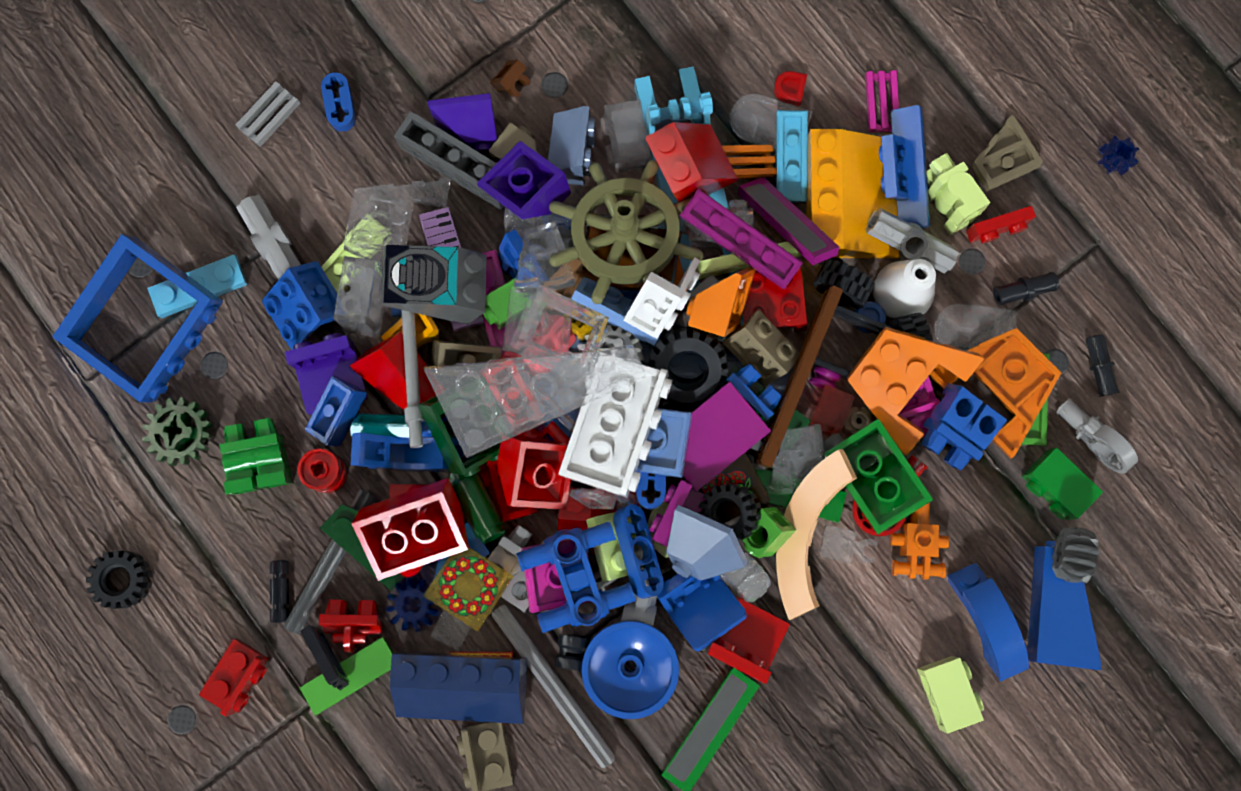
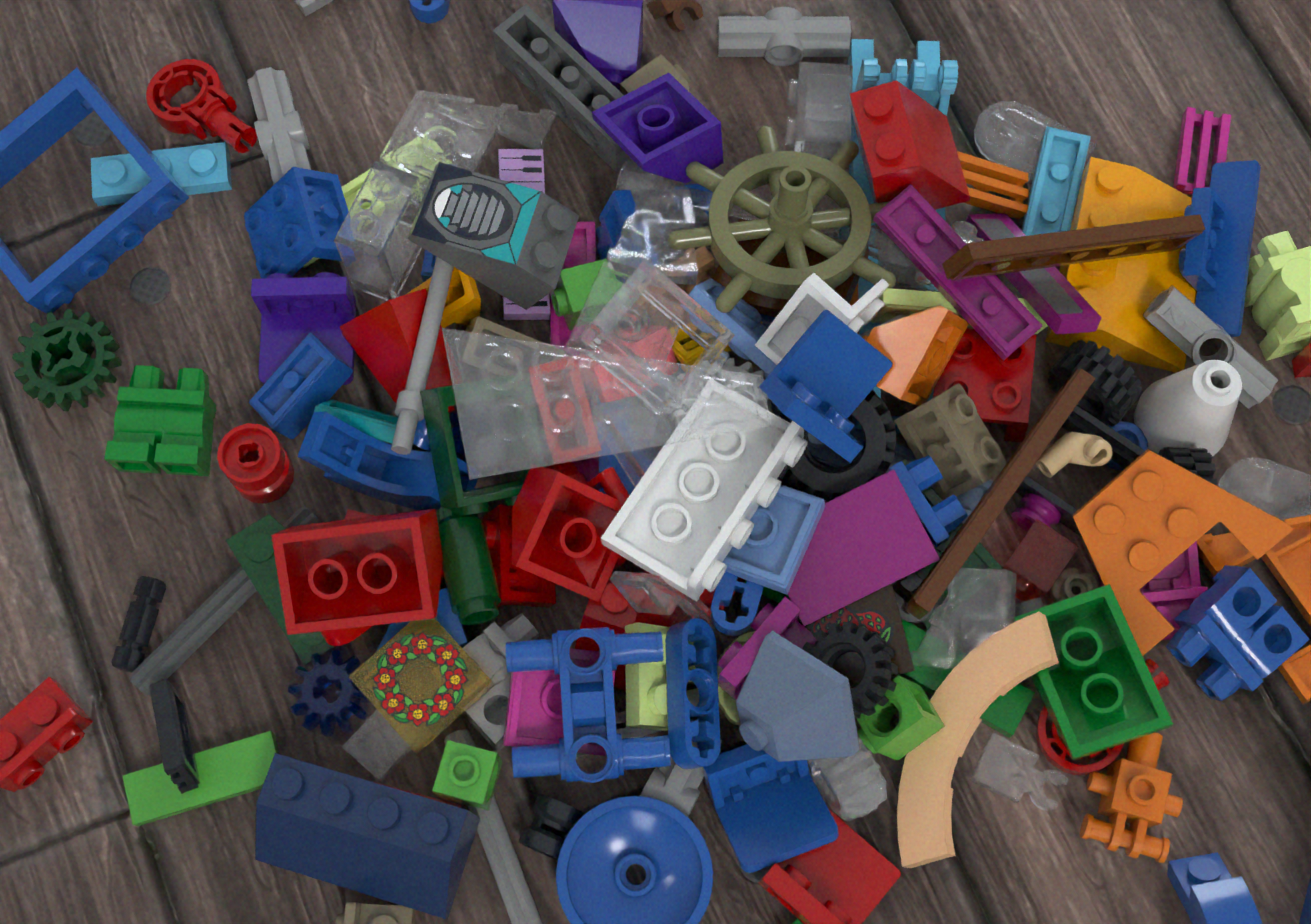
camera: 15 degrees right, 10 degrees down
(213, 235) = (205, 111): none -> red pin
(350, 628) = (228, 702): red hips -> none
(513, 636) = (467, 775): none -> bright green brick
(570, 142) = (743, 99): sand blue slope -> none
(588, 85) = (784, 36): none -> light grey piece
(672, 342) = (826, 381): none -> blue bracket
(790, 87) = (1071, 104): red tile -> none
(811, 204) = (1072, 247): none -> reddish brown tile
(840, 334) = (1074, 449): none -> tan arm

